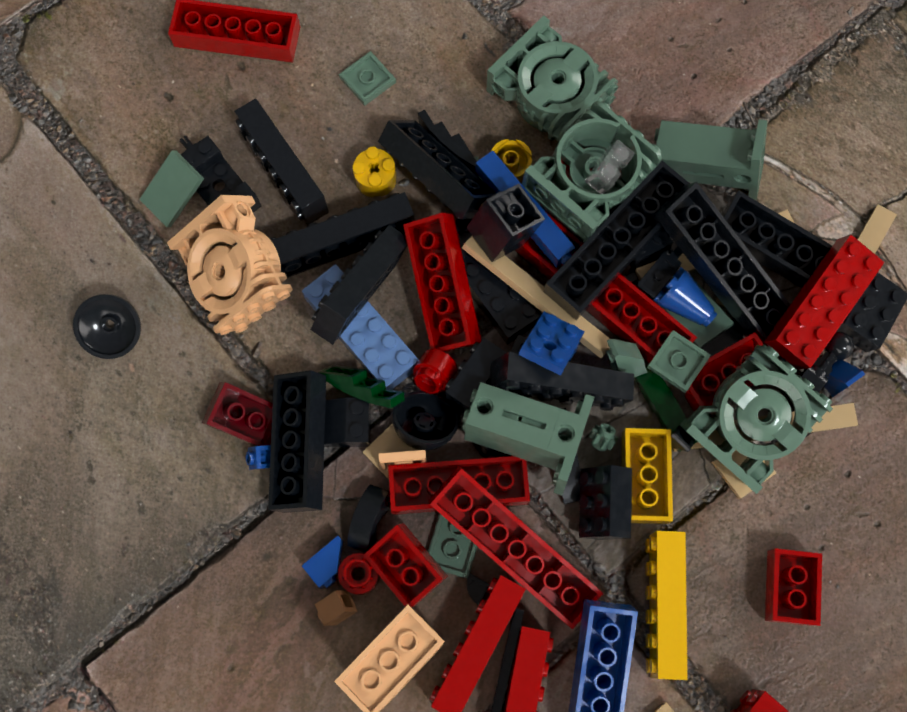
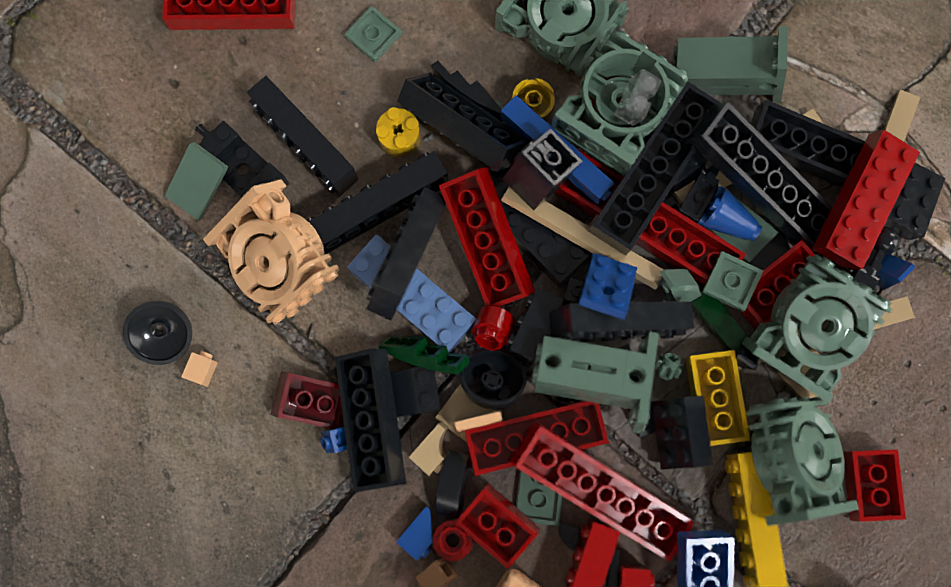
camera: 10 degrees left, 5 degrees up
(141, 367) = (200, 368): none -> light nougat brick
(351, 482) = (430, 452): none -> tan arch
(718, 546) = (799, 460): none -> sand green brick

